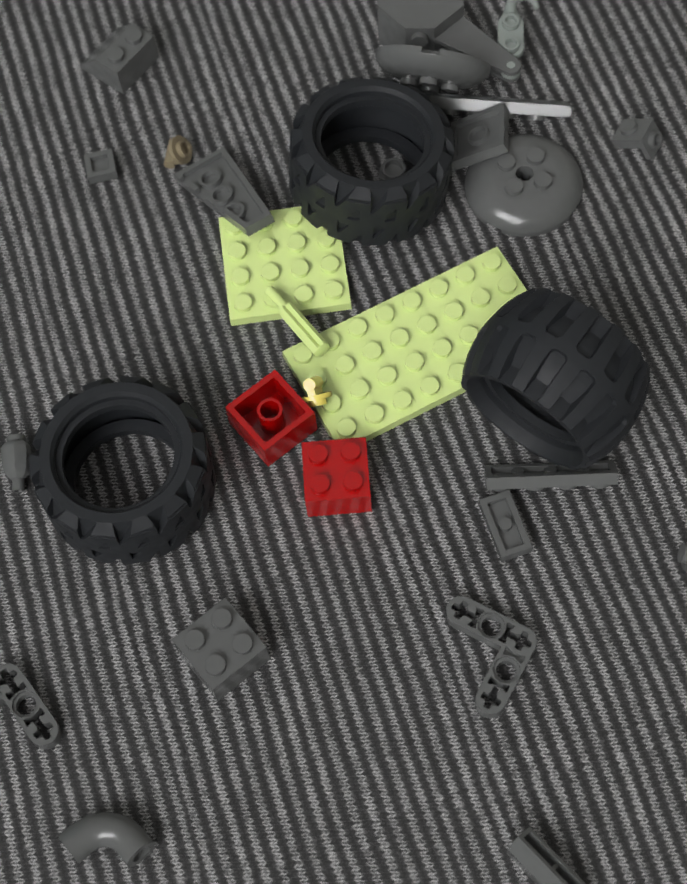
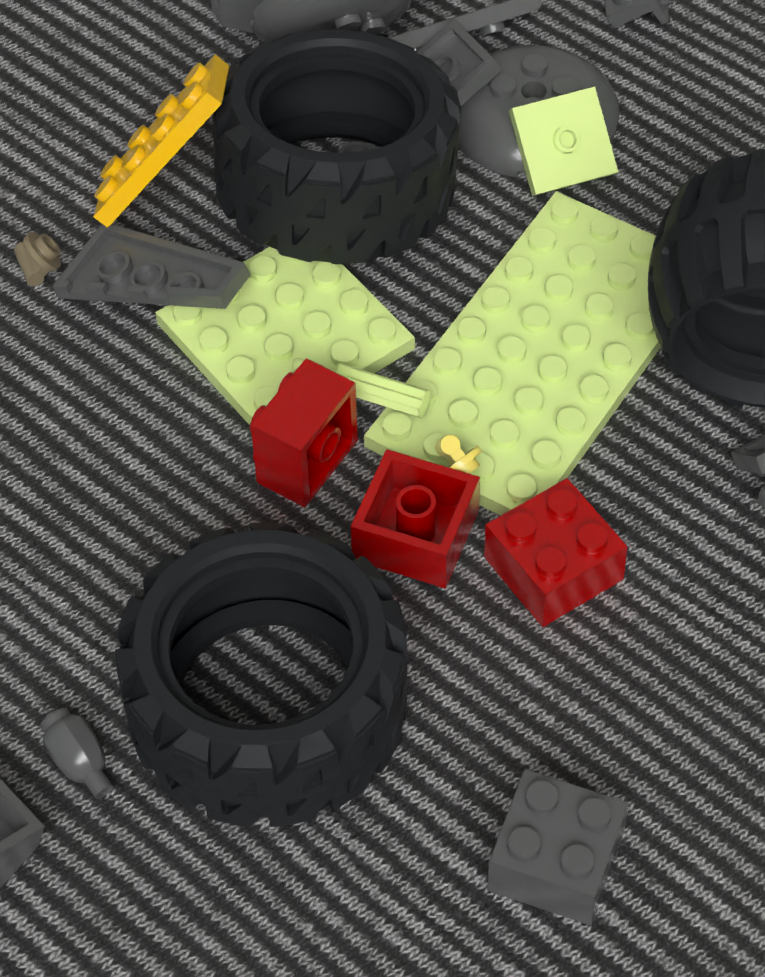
camera: 35 degrees left, 10 degrees down
(243, 334) = (304, 432): none -> red brick
(271, 111) = (156, 145): none -> yellow plate
(519, 216) = (563, 141): none -> yellowish green plate

